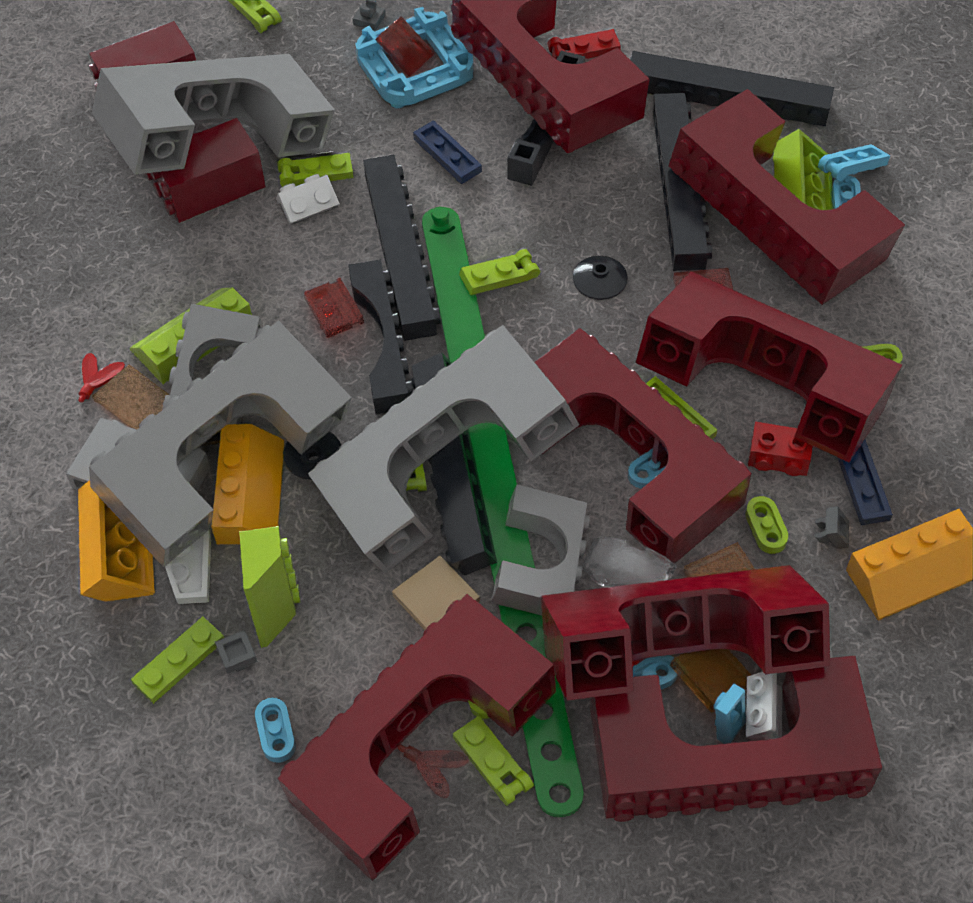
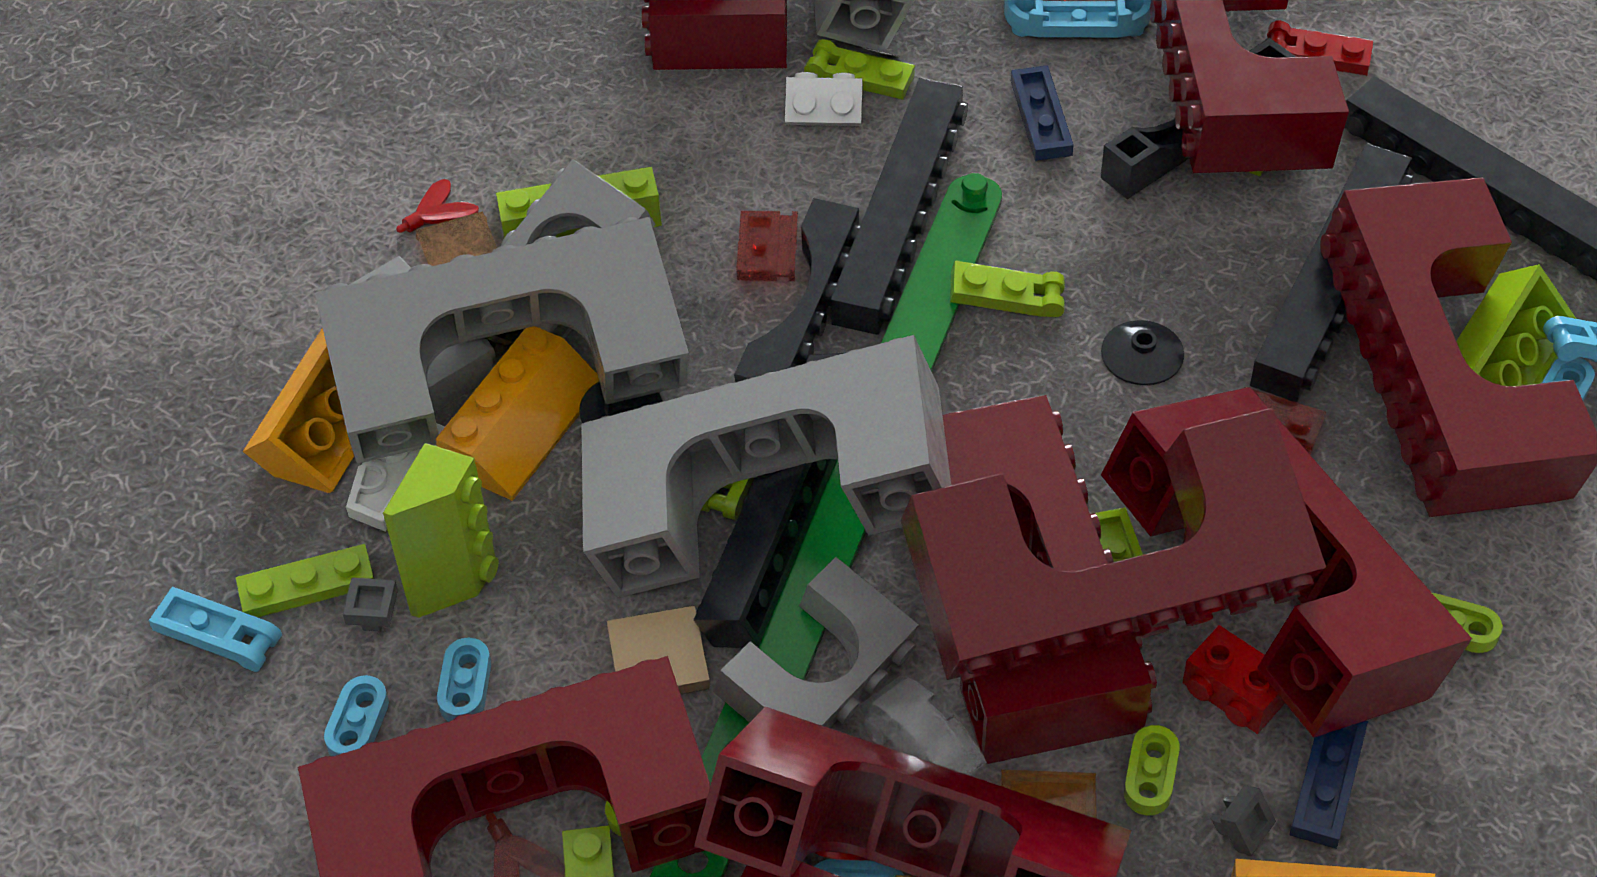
camera: 30 degrees right, 5 degrees down
(139, 718) = (214, 628): none -> medium azure plate
(329, 673) = (461, 683): none -> medium azure plate
(651, 466) = (1004, 606): none -> dark red arch

